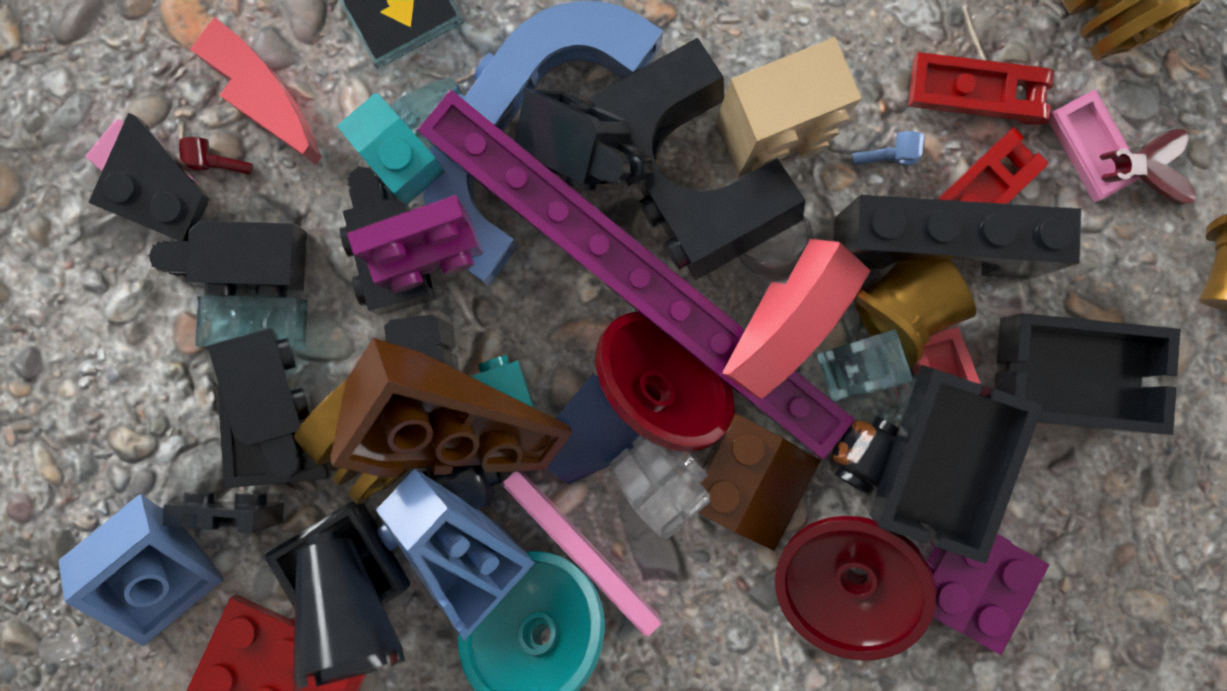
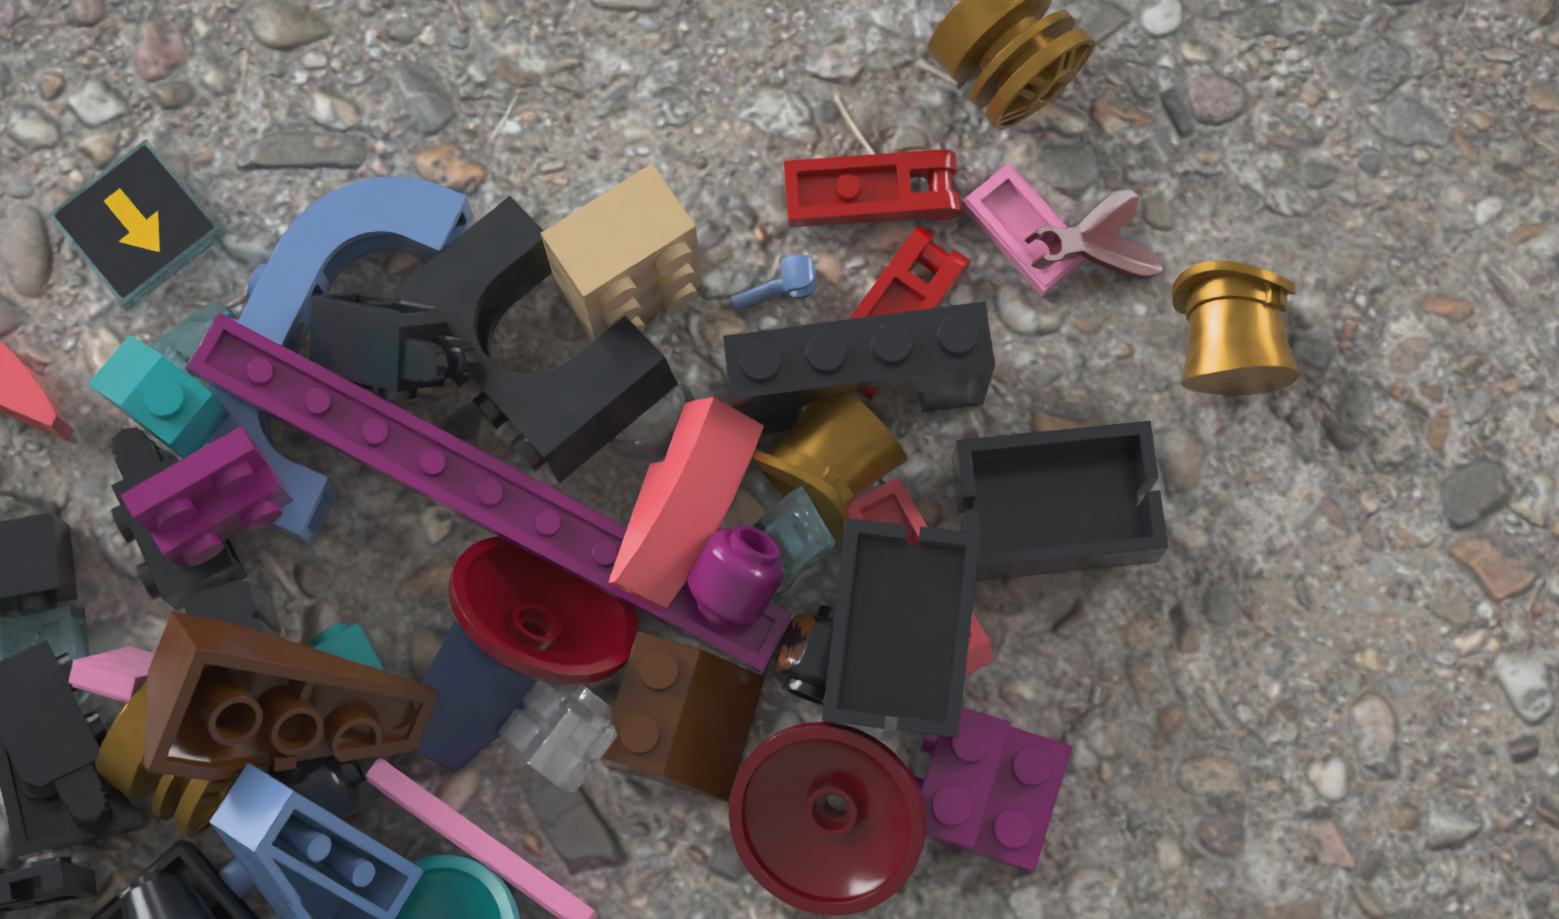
camera: 10 degrees left, 10 degrees down
(323, 364) = (112, 673): none -> bright pink tile
(824, 386) = (736, 575): none -> magenta head

